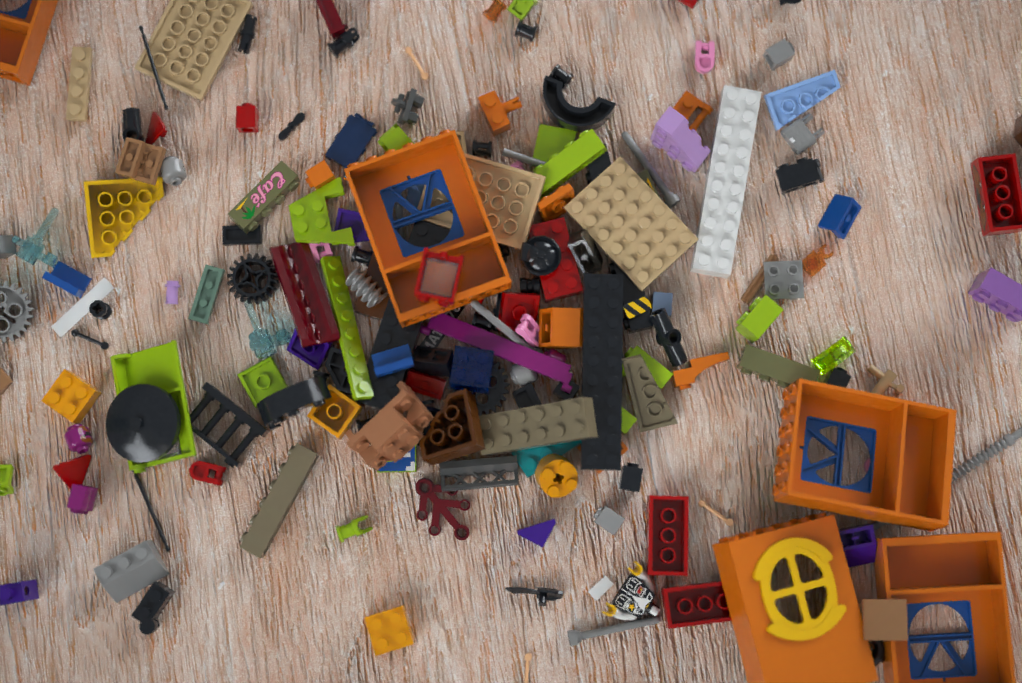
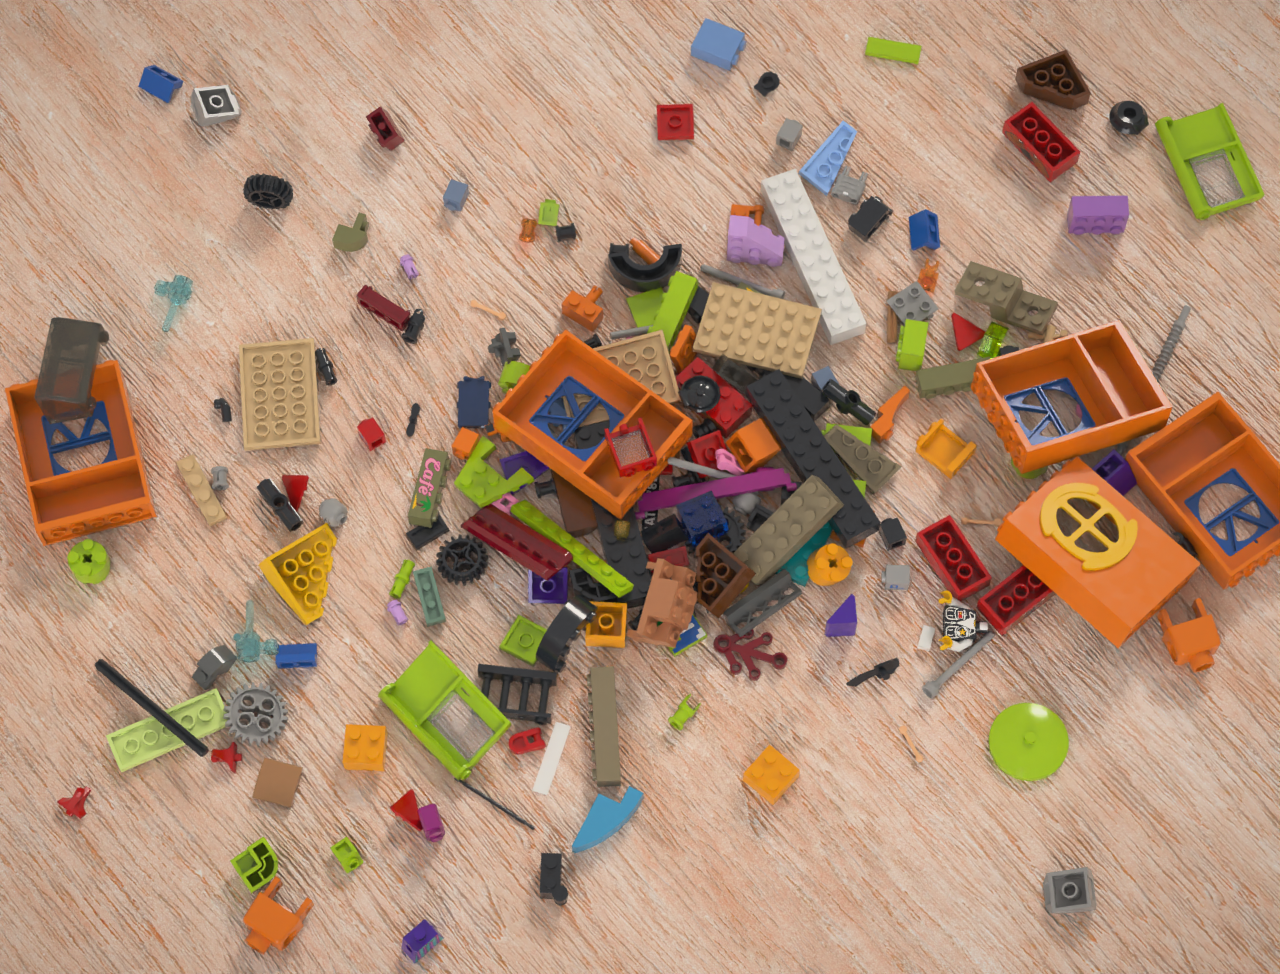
camera: 30 degrees left, 15 degrees down
(78, 438) = (394, 779): magenta head -> none
(81, 308) = (324, 672): white sticker -> none
(98, 304) = (341, 667): black bush -> none
(99, 83) = (219, 478): none -> light grey bush
(104, 345) = (365, 692): black hinge -> none
(131, 570) = (513, 861): light grey slope -> none
(140, 161) = (302, 517): medium nougat slope -> none
(141, 15) = (225, 409): none -> black arm
(143, 423) = (446, 726): black dish -> none
(153, 67) = (261, 437): black piece -> none
(194, 265) = (402, 579): none -> lime pin
(221, 498) = (551, 758): none -> white sticker
(230, 581) = (606, 819): none -> dark azure slope
(261, 339) = (504, 604): clear light blue piece -> none
(364, 287) = (567, 505): light grey piece -> none
(392, 360) = (630, 549): blue panel -> none
(397, 337) = (621, 529): none -> clear yellow piece
(582, 90) = (644, 251): none -> orange cylinder
(637, 307) = (807, 391): sticker -> none
(704, 62) = (731, 175): bright pink plate -> none
(726, 428) = (944, 449): none -> light orange panel
(814, 333) = (965, 332): none -> red piece
(870, 324) = (1006, 298): none -> dark tan bracket
(885, 619) = (1173, 512): medium nougat slope -> none
(923, 28) = (893, 50): none -> lime tile

